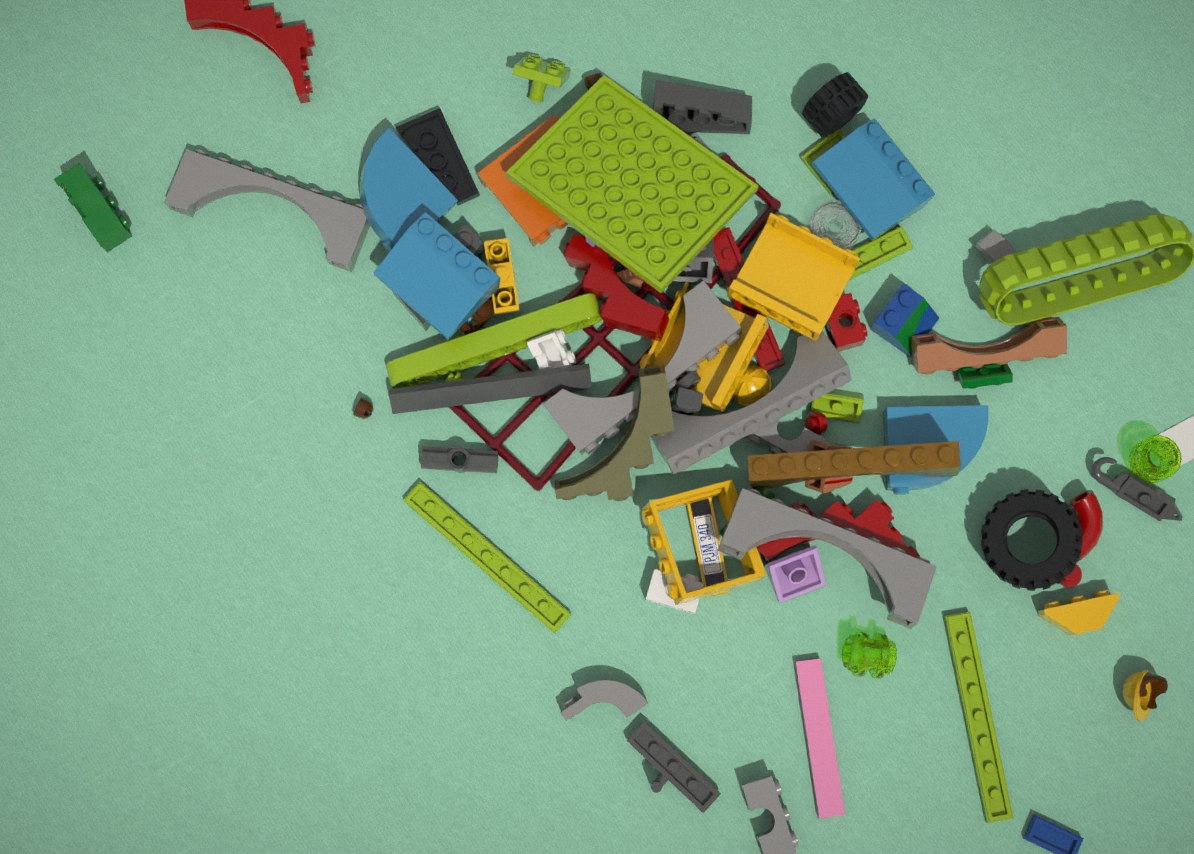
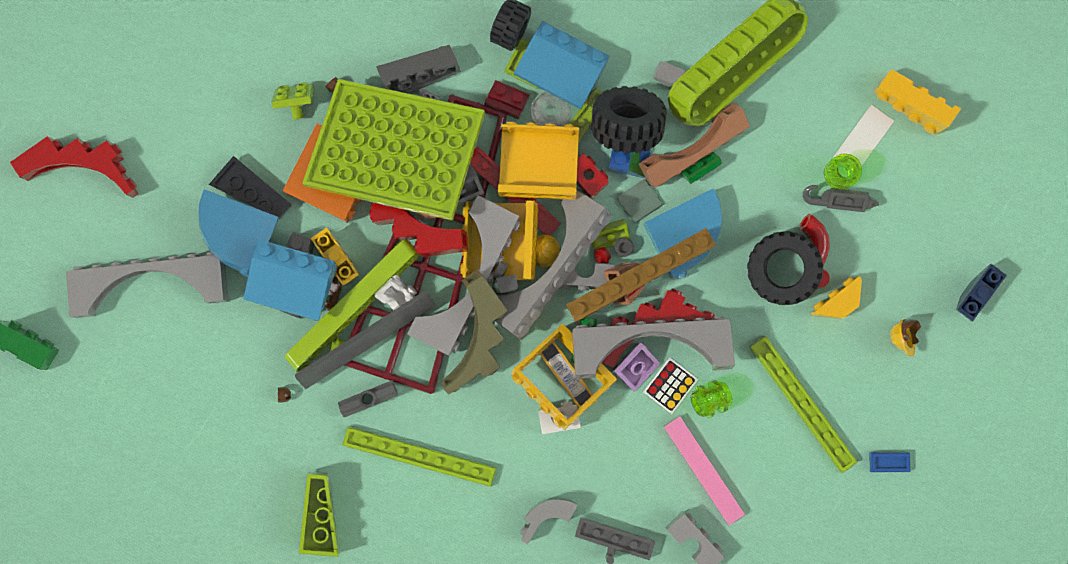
camera: 25 degrees left, 5 degrees up
(332, 574) = (318, 520): none -> lime wedge
(789, 190) = (506, 99): none -> dark red plate
(826, 617) = (670, 385): none -> sticker
(847, 425) = (623, 246): none -> dark grey tile
(891, 381) = (639, 201): none -> sand green piece
(923, 276) = (628, 119): none -> black tyre

